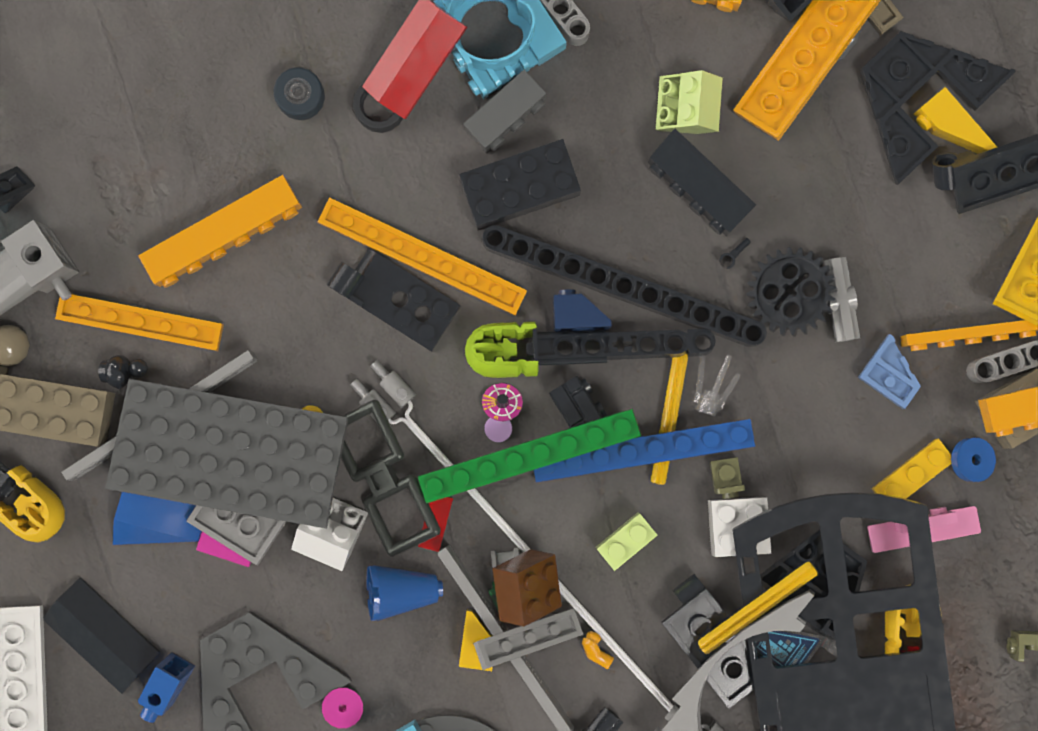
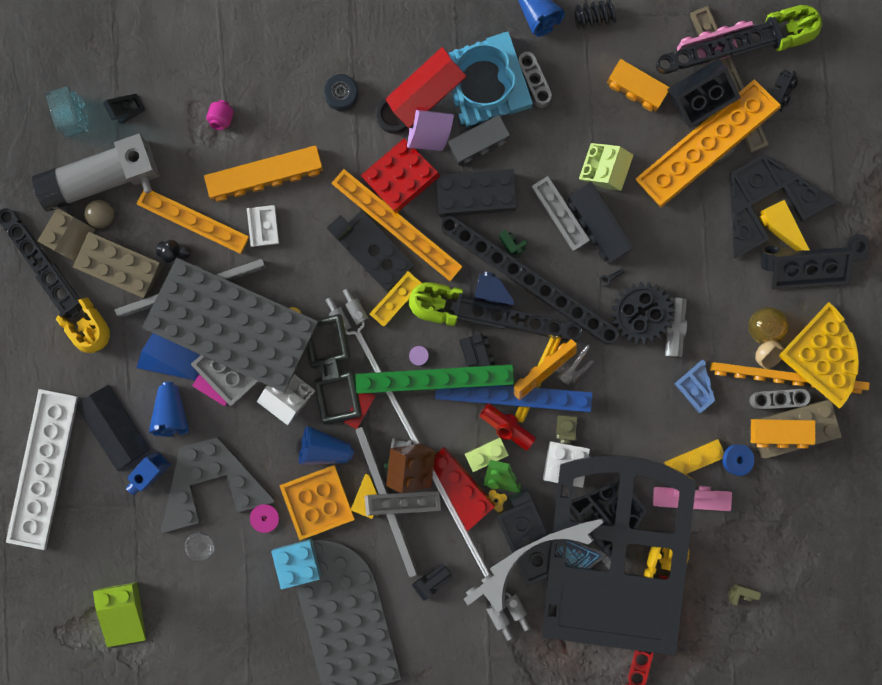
camera: 15 degrees right, 0 degrees up
(139, 166) = (219, 115): none -> dark pink head
(172, 595) = (168, 412): none -> blue cone
(238, 304) = (263, 226): none -> white plate
(410, 187) = (400, 176): none -> red plate
(410, 667) = (317, 502): none -> light orange plate
(435, 114) = (430, 130): none -> lavender slope
(446, 359) = (395, 299): none -> yellow plate
(502, 402) = (426, 338): dark pink piece -> none
(582, 240) = (509, 242): none -> dark green bracket
(593, 651) = (445, 525): light orange arm -> none
(607, 600) = (464, 493): none -> red wing
(642, 183) = (560, 213): none -> light grey plate
(645, 495) = (507, 426): none -> red piece
(649, 607) = (501, 499): none -> yellow plate
(654, 567) = (500, 476): none -> bright green wing
(682, 396) = (549, 365): none -> light orange plate
(757, 607) = (563, 521): yellow axle -> none
(967, 265) = (768, 325): none -> clear yellow cylinder
(977, 304) = (768, 354): none -> tan hair

